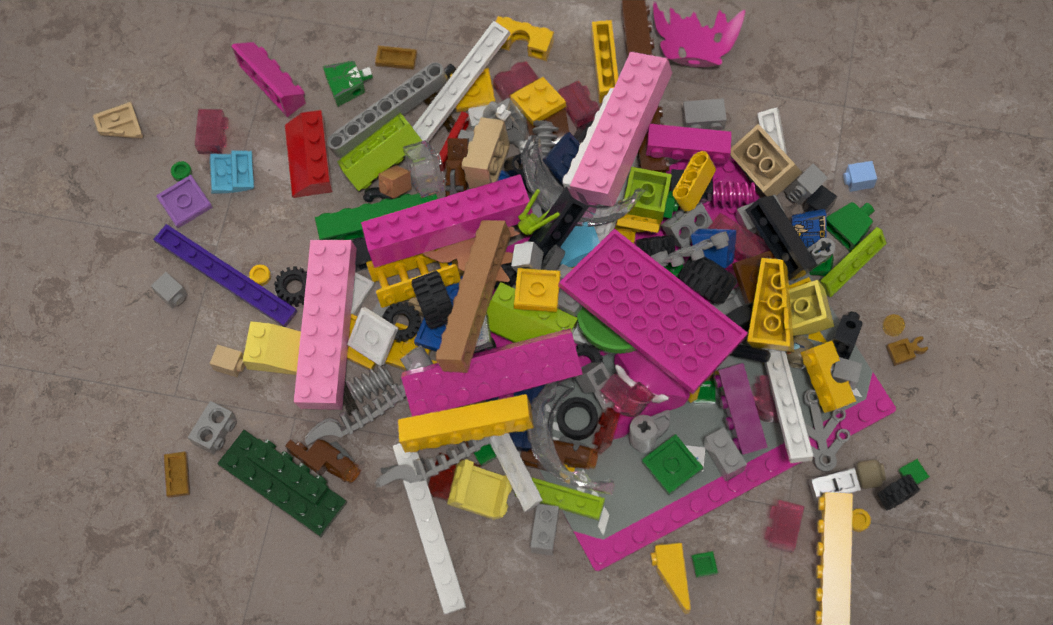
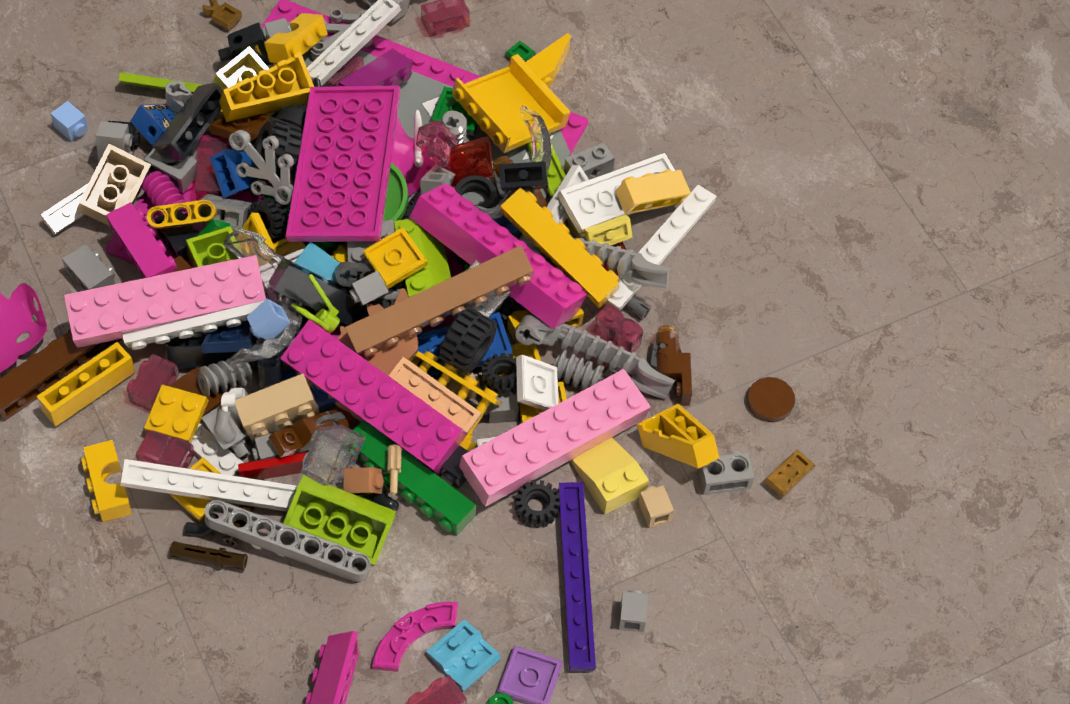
camera: 135 degrees left, 10 degrees down
(243, 511) = (771, 399): none -> reddish brown tile
(255, 408) = (679, 437): none -> yellow wedge
(260, 274) = (549, 547): yellow tile -> none
(275, 154) = (409, 629): none -> dark pink tile
(283, 482) = (720, 385): dark green plate -> none
(308, 155) = (389, 590): red slope -> none
(346, 81) = (278, 614): green torso -> none
(375, 440) = (621, 331): none -> clear pink brick
(386, 203) = (394, 466): none -> tan axle
(396, 57) = (212, 591): pearl gold tile -> none
(414, 258) = (435, 395): none -> light nougat plate
(435, 56) = (208, 555): none -> dark brown pin
(473, 547) = (652, 191): none -> yellow brick
(493, 527) = (596, 199): none -> white plate
(538, 428) = (524, 175): none -> black brick
(552, 178) = (268, 320): none -> light blue brick
(647, 501) = (497, 99): none -> yellow panel
(724, 454) = (420, 78): light grey brick -> none
(850, 224) = (124, 101): green torso -> none
(893, 325) = (203, 34): clear yellow tile -> none

